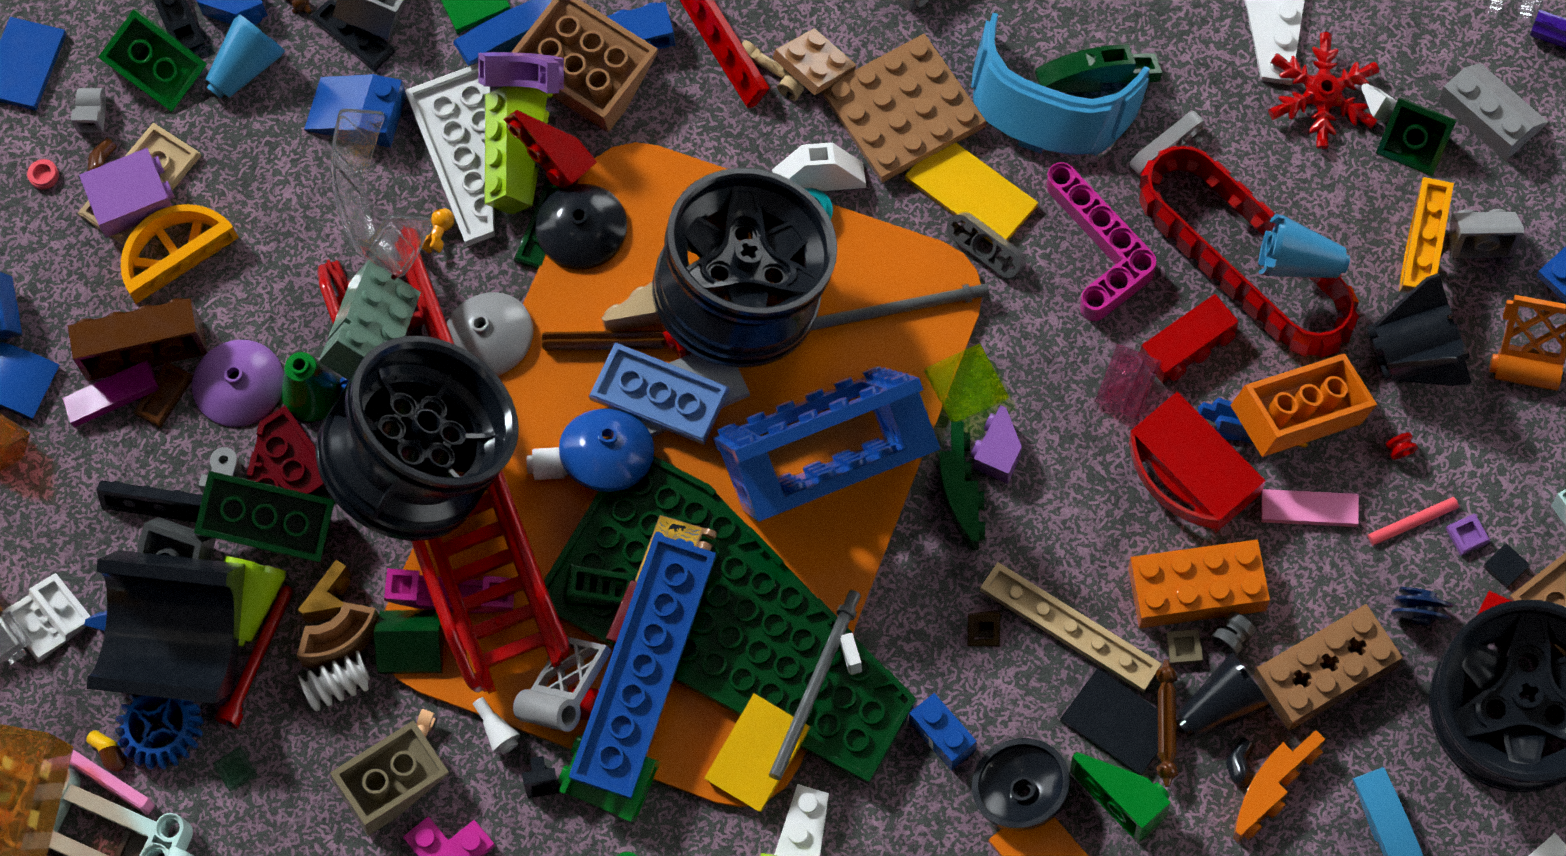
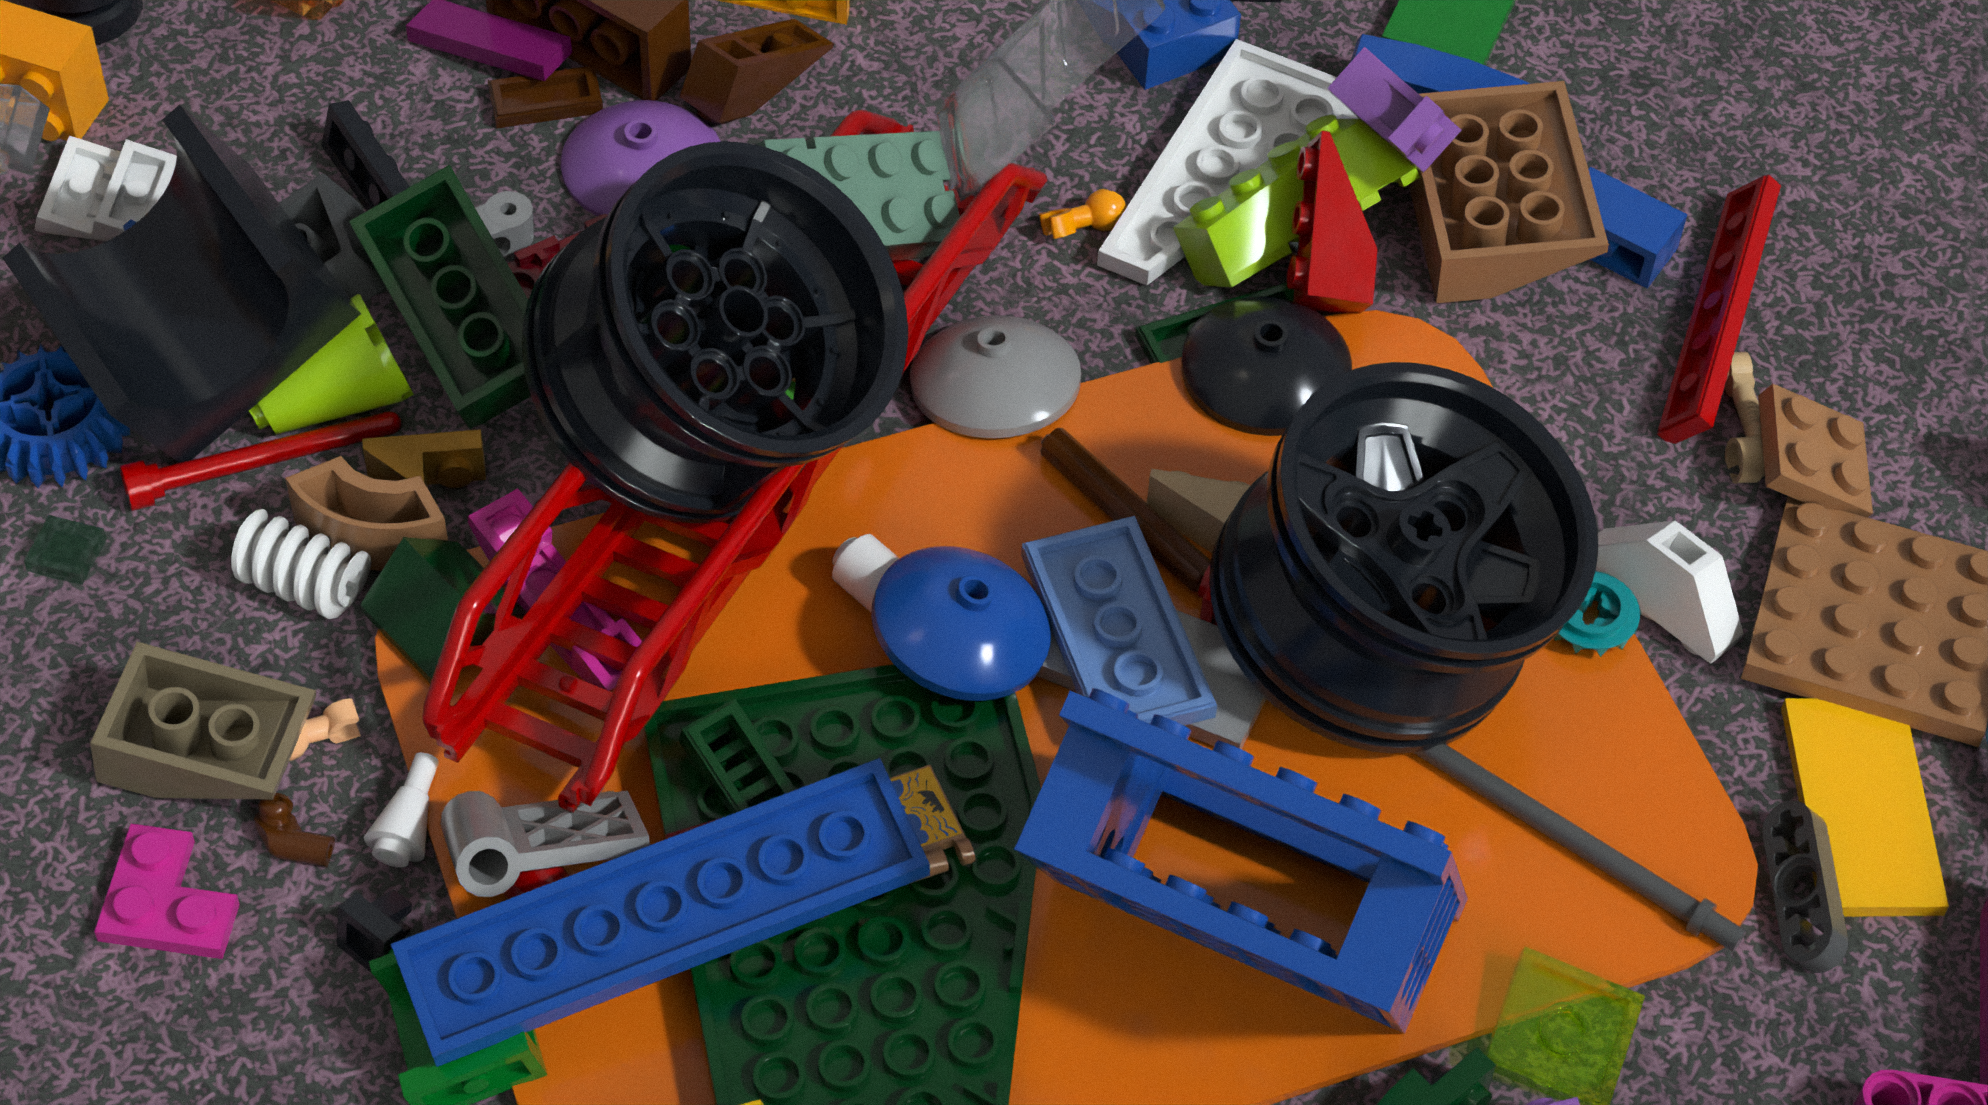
camera: 40 degrees right, 15 degrees down
(233, 297) = (748, 67): none -> reddish brown slope
(463, 782) = (284, 836): none -> reddish brown arm

